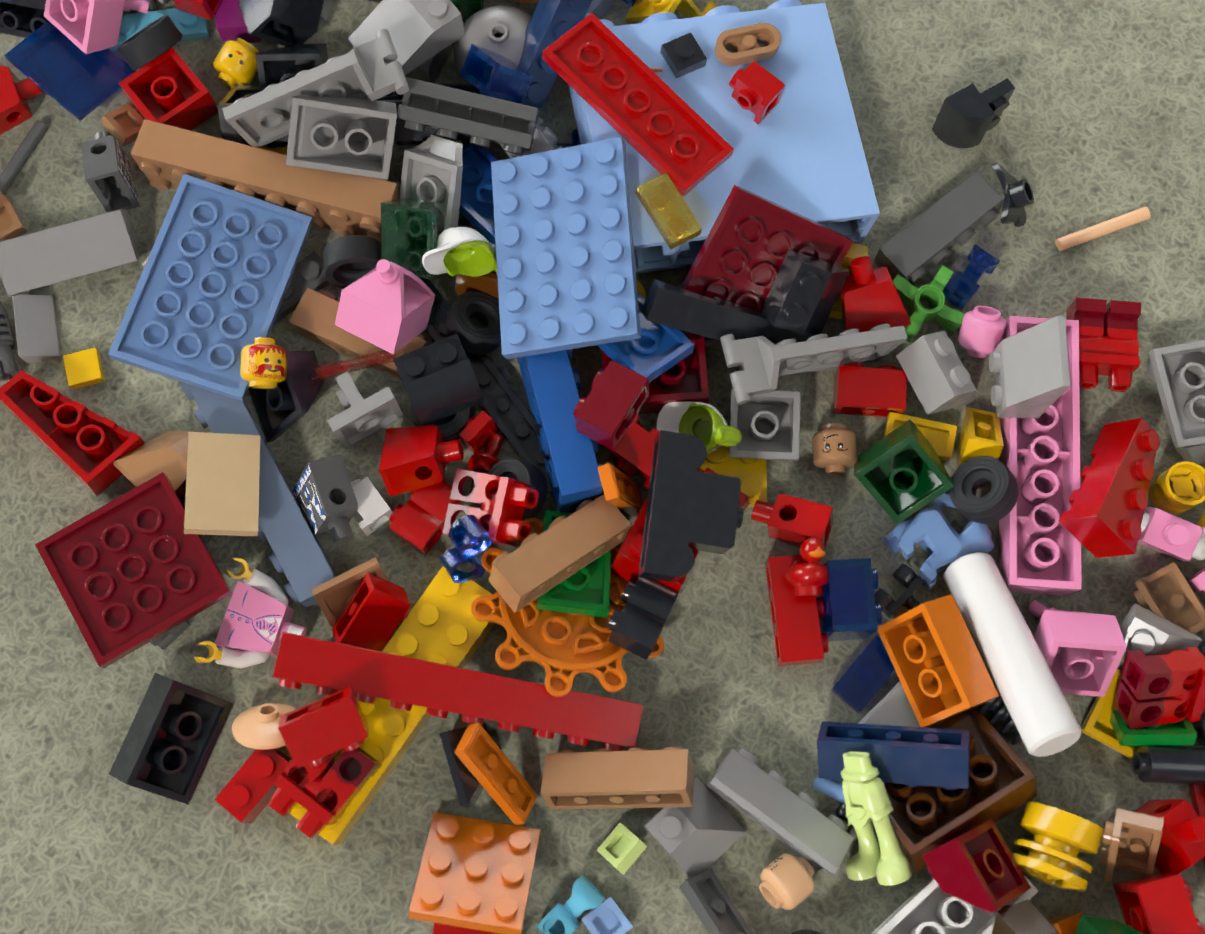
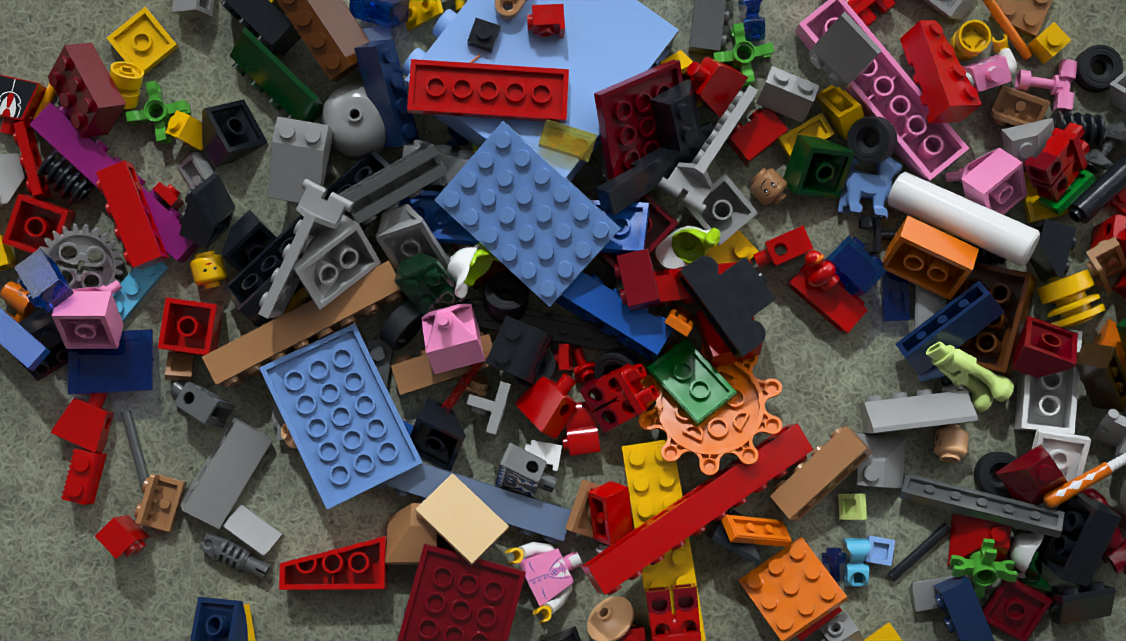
camera: 45 degrees left, 10 degrees up
(84, 368) = (304, 527): yellow tile -> none
(150, 42) = (147, 305): black tyre -> none
(263, 363) = (417, 433): yellow head -> none
(324, 728) = (656, 594): red brick -> none
(369, 381) = (478, 385): none -> medium nougat plate
(469, 542) = (629, 425): clear blue leg -> none
(507, 81) = (390, 141): clear blue piece -> none
(552, 884) = (834, 558): none -> clear blue plate
(558, 552) = (682, 385): medium nougat brick -> none
(642, 617) = (756, 378): black brick -> none
(981, 331) = (788, 43): bright pink head -> none
(1080, 771) = (1052, 250): none -> black slope

